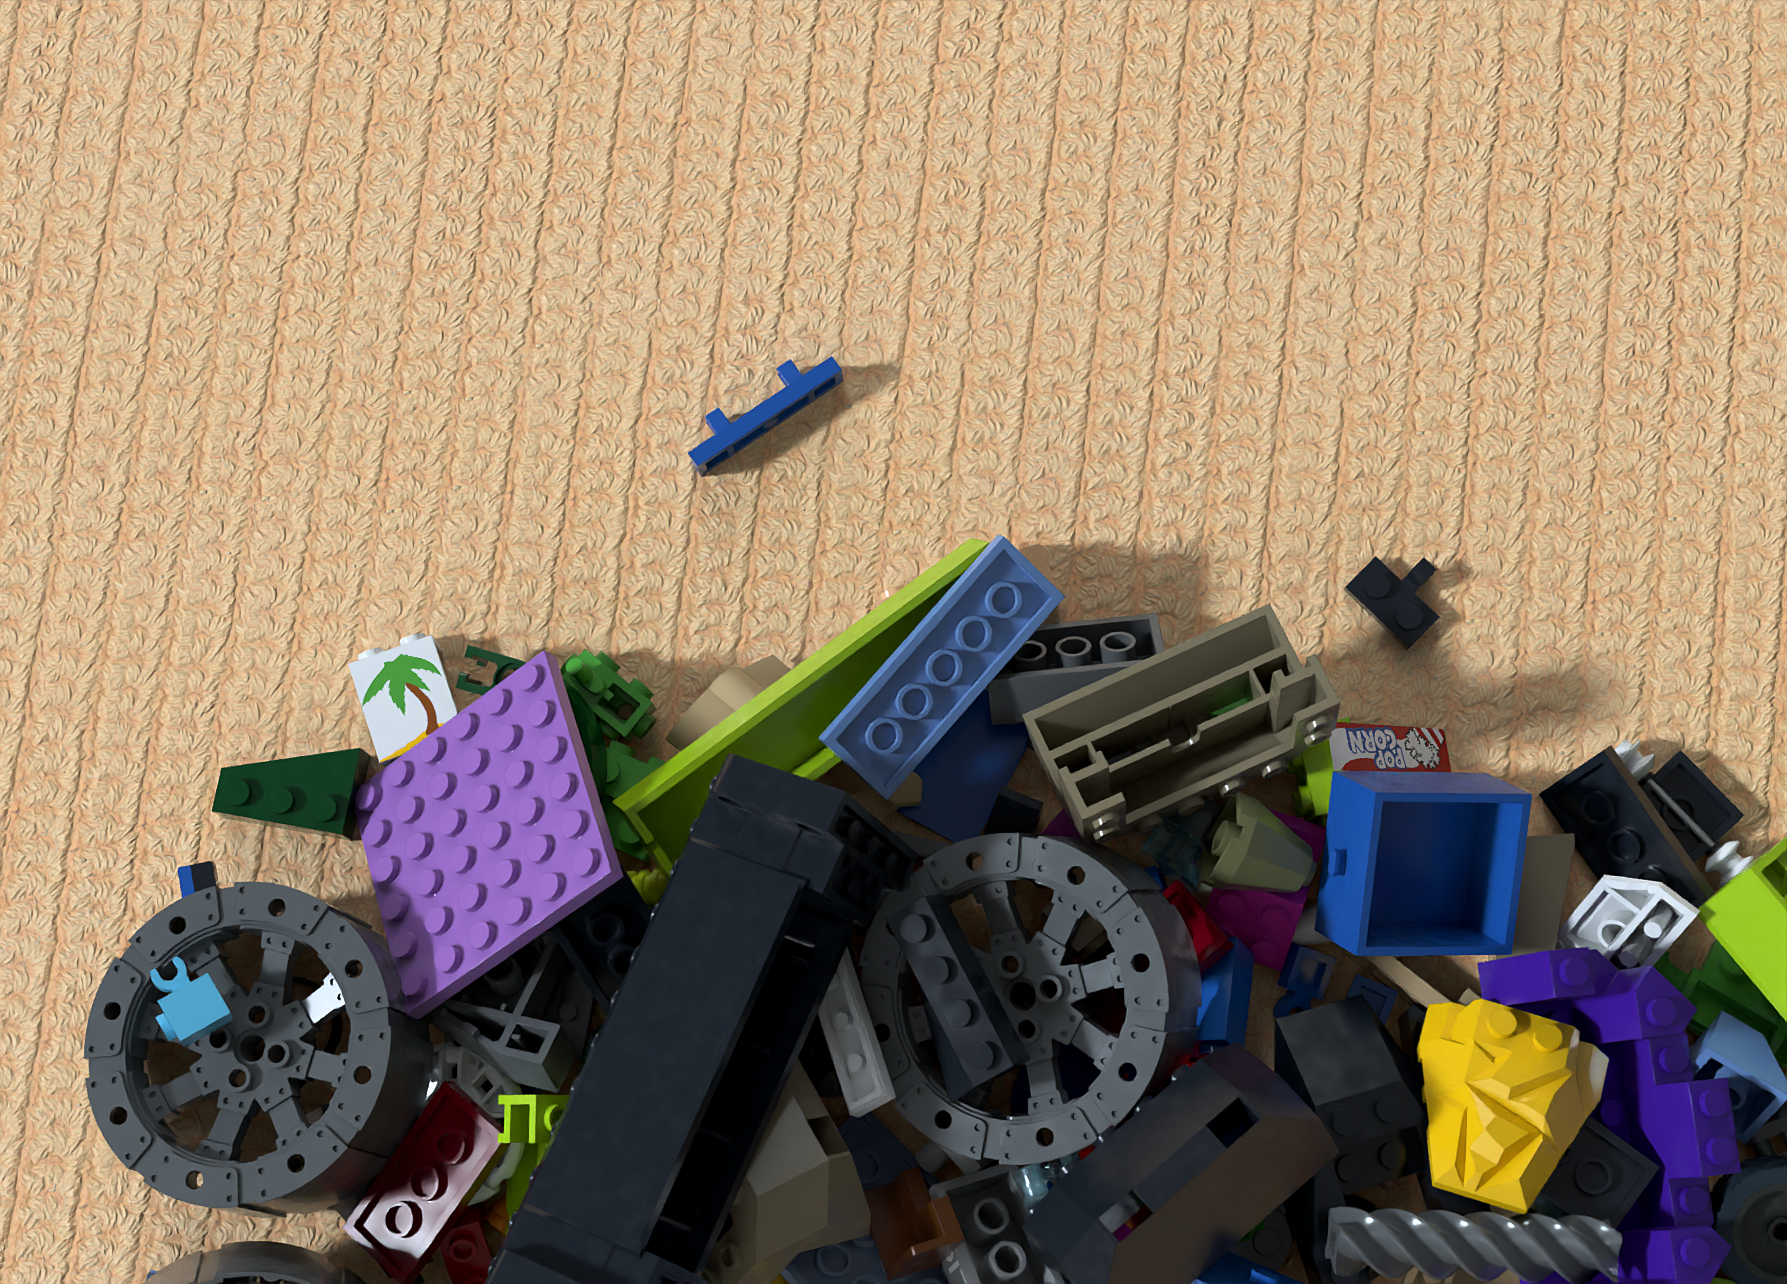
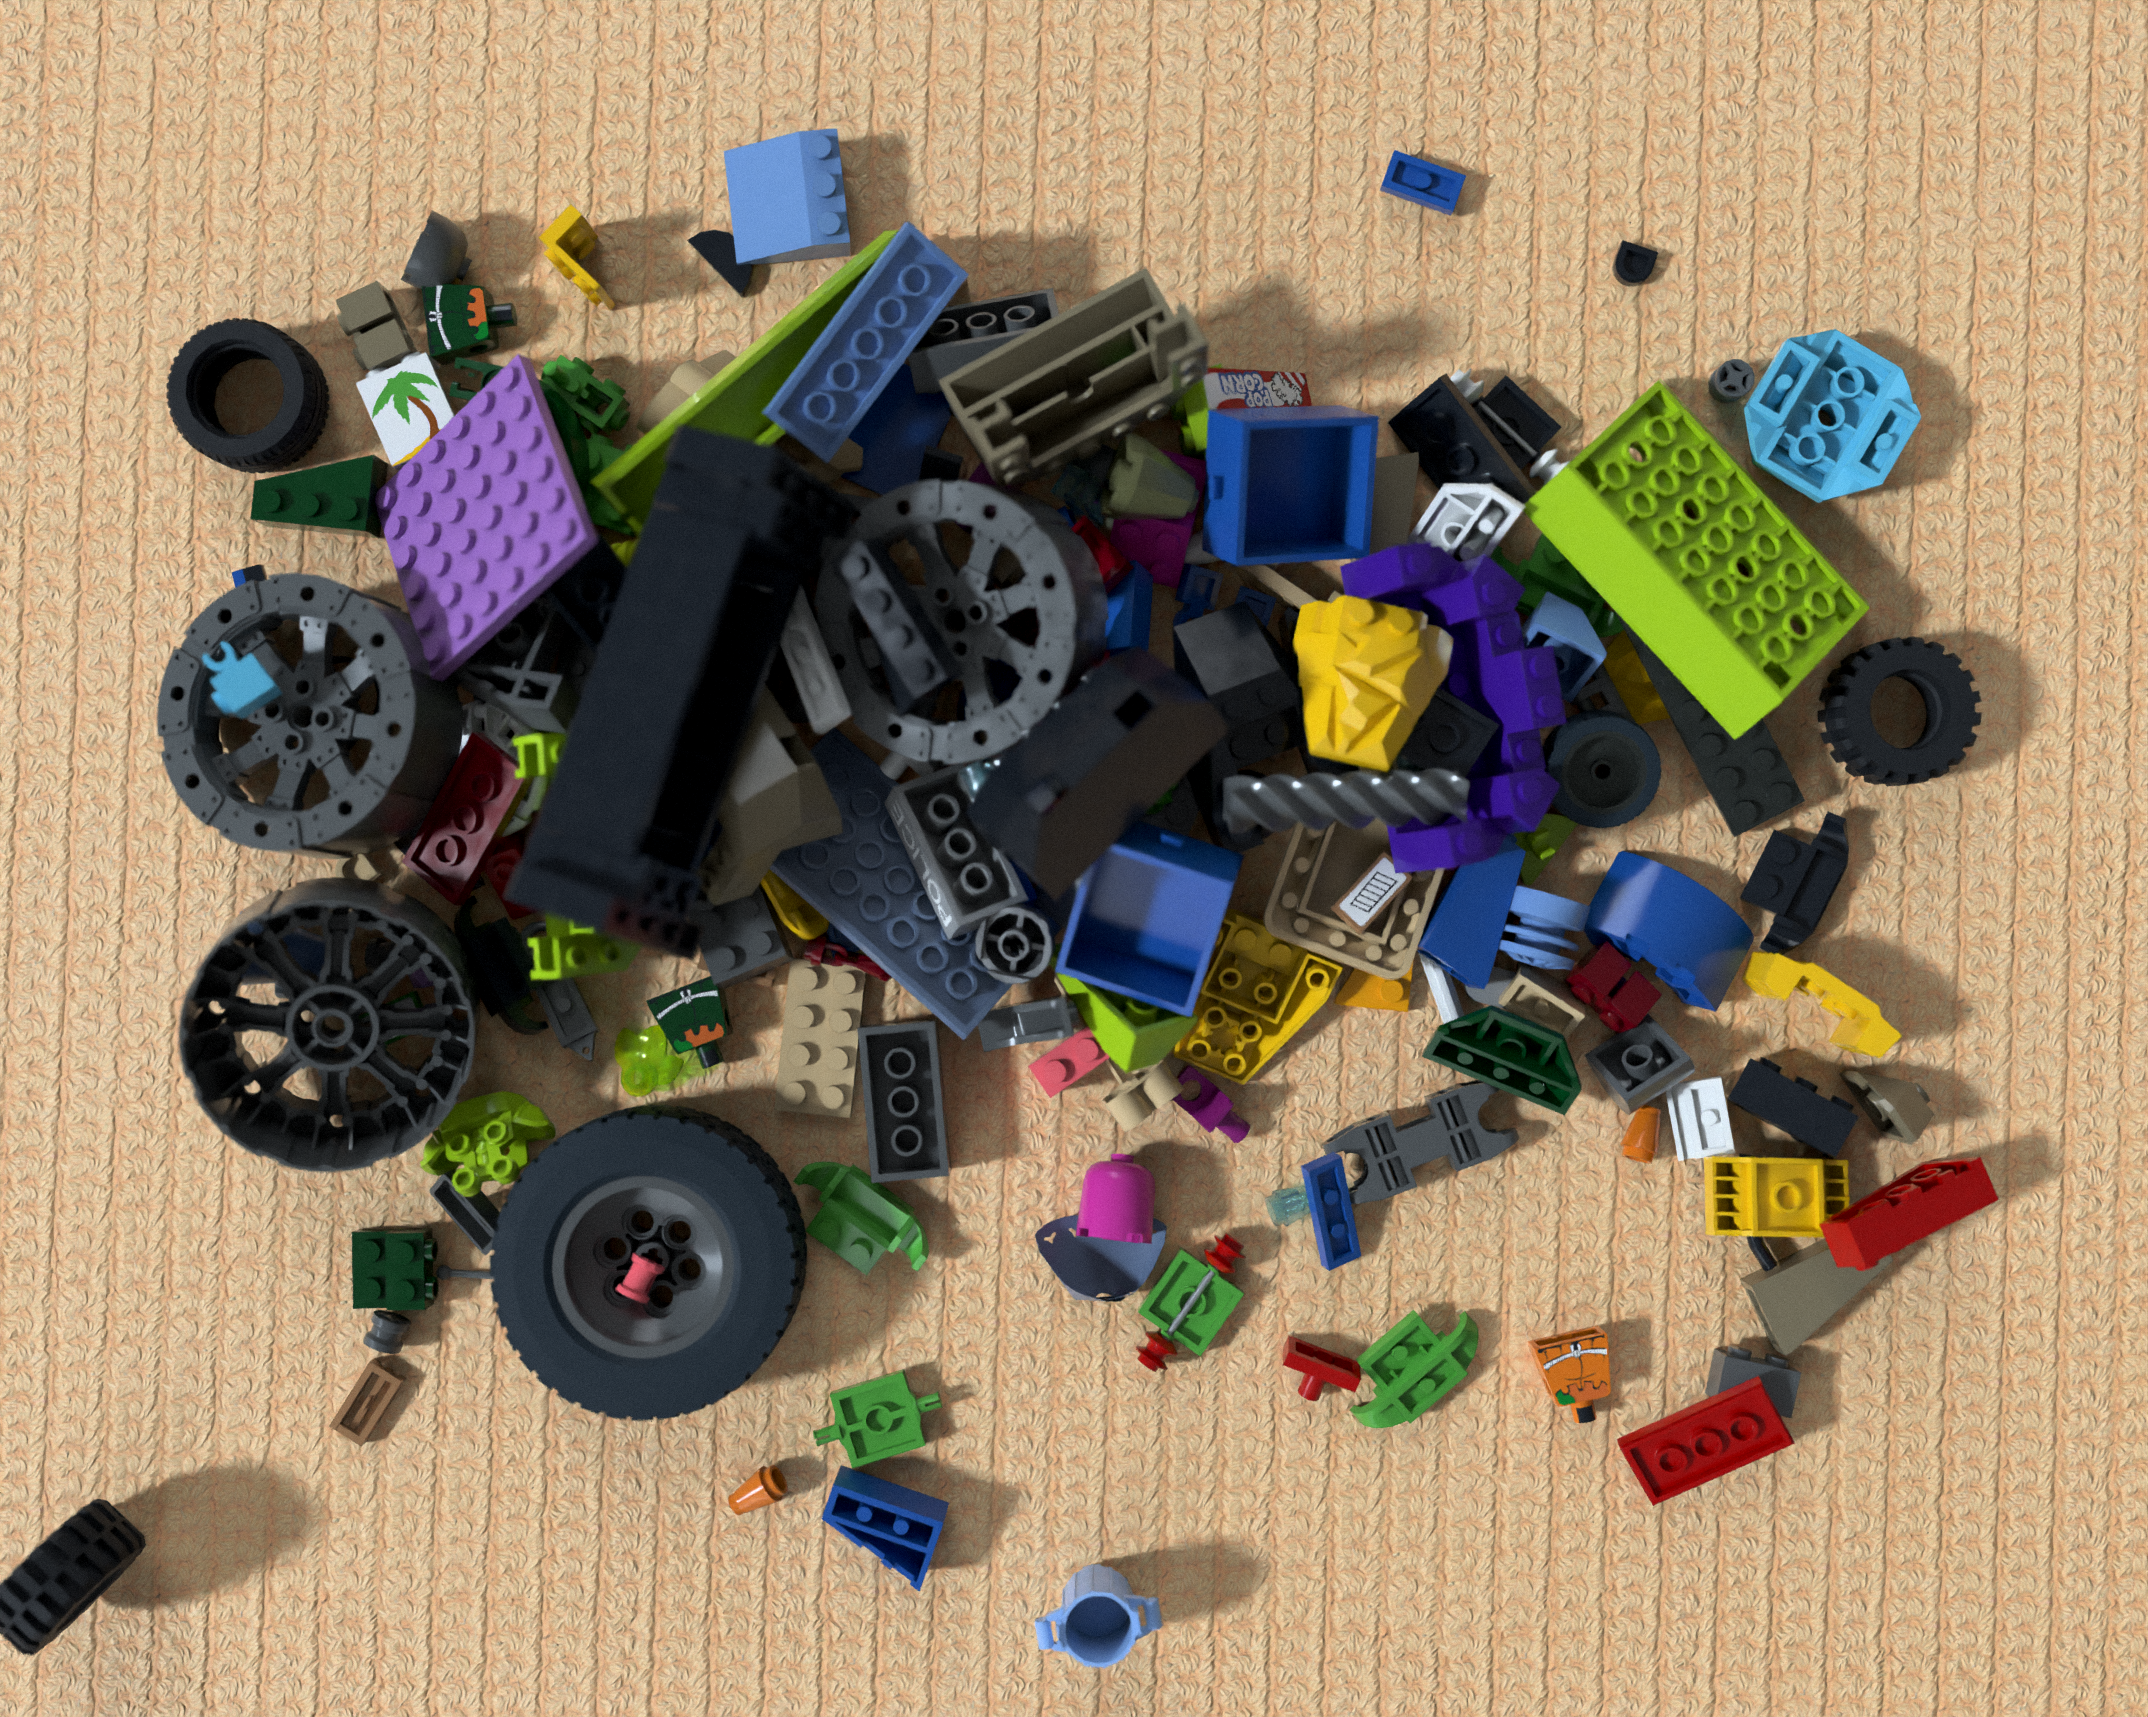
camera: 10 degrees left, 10 degrees up
(170, 640) = (199, 372): none -> black tyre
(287, 1230) = (360, 867): none -> tan tile
(375, 601) = (375, 327): none -> dark tan piece
(455, 526) = (438, 254): none -> dark grey cylinder
(476, 601) = (463, 321): none -> dark green torso
(607, 519) = (568, 240): none -> yellow bracket
(735, 436) = (702, 138): blue hinge -> none
(782, 549) = (719, 252): none -> black tile
(859, 490) = (788, 199): none -> medium blue slope
(910, 1227) = (876, 822): reddish brown panel -> none
(1394, 600) = (1256, 263): black plate -> none
(1591, 522) = (1422, 182): none -> blue plate

